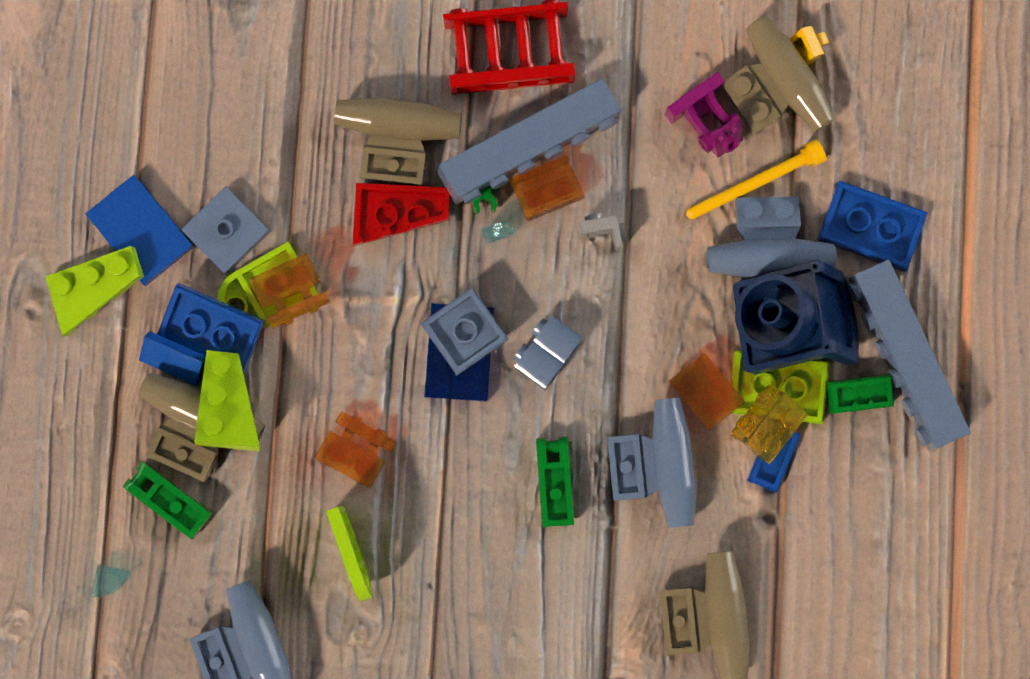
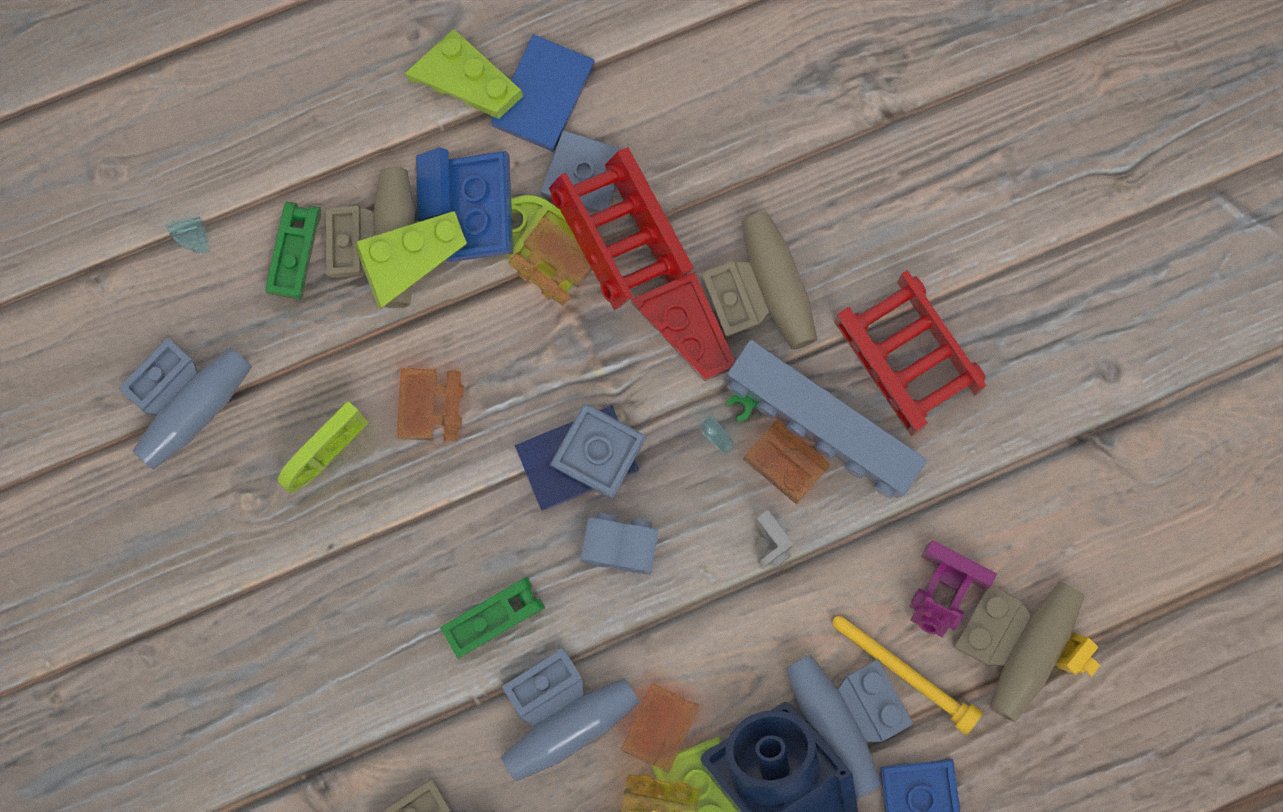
camera: 65 degrees right, 5 degrees down
(291, 196) = (645, 210): none -> red fence

